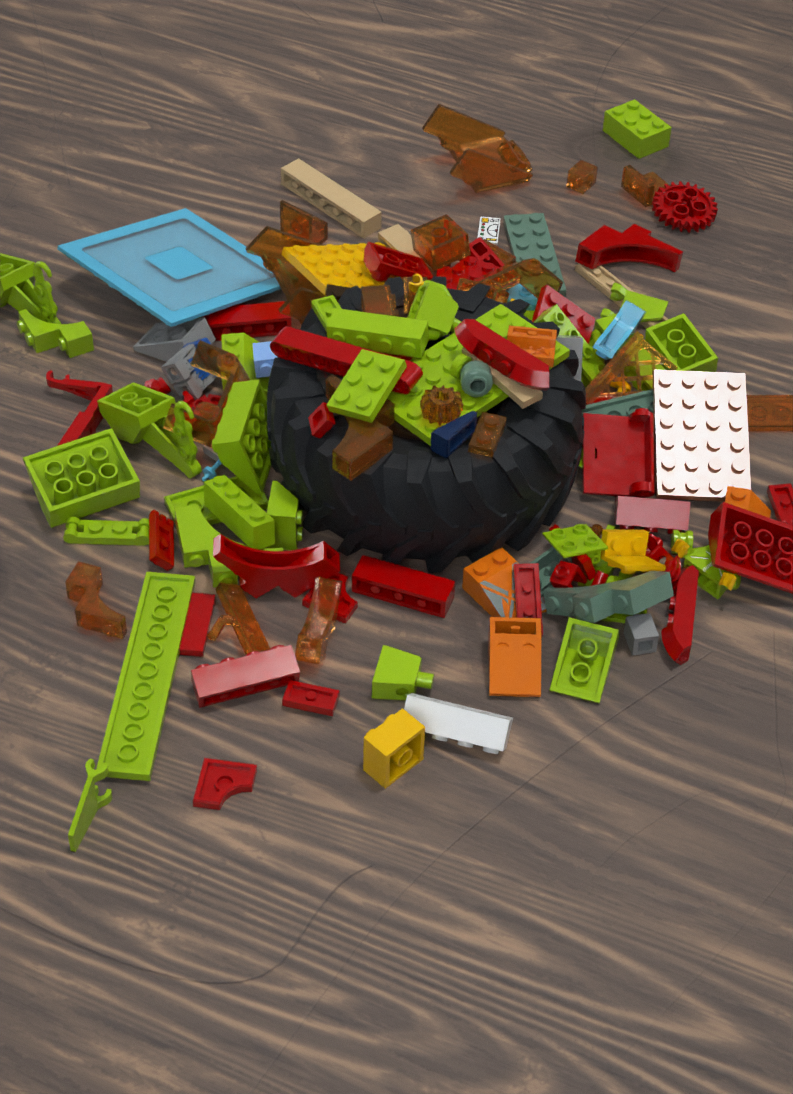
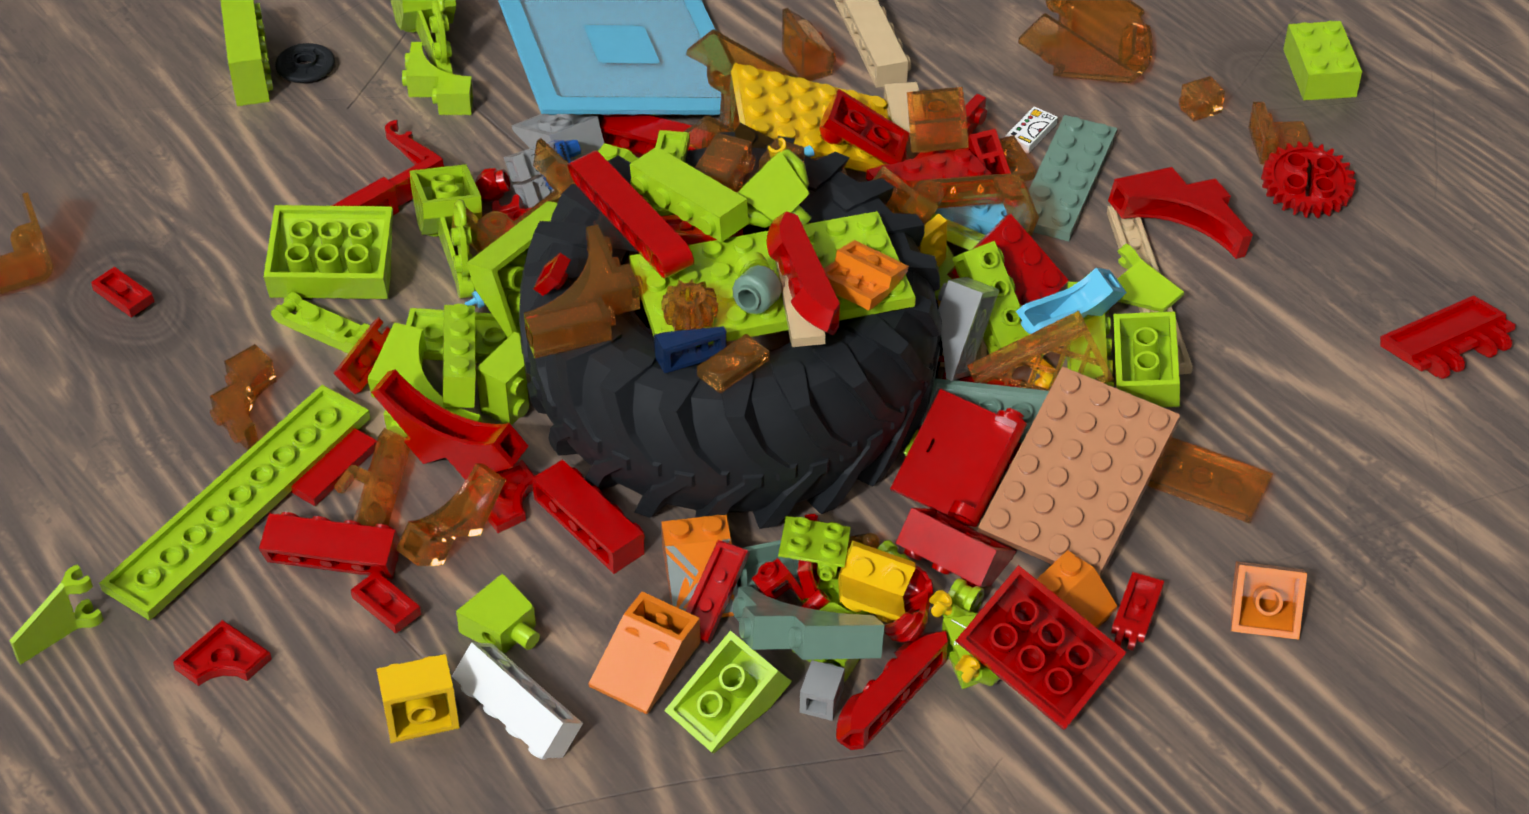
camera: 30 degrees right, 0 degrees up
(366, 385) = (614, 250): lime plate -> none

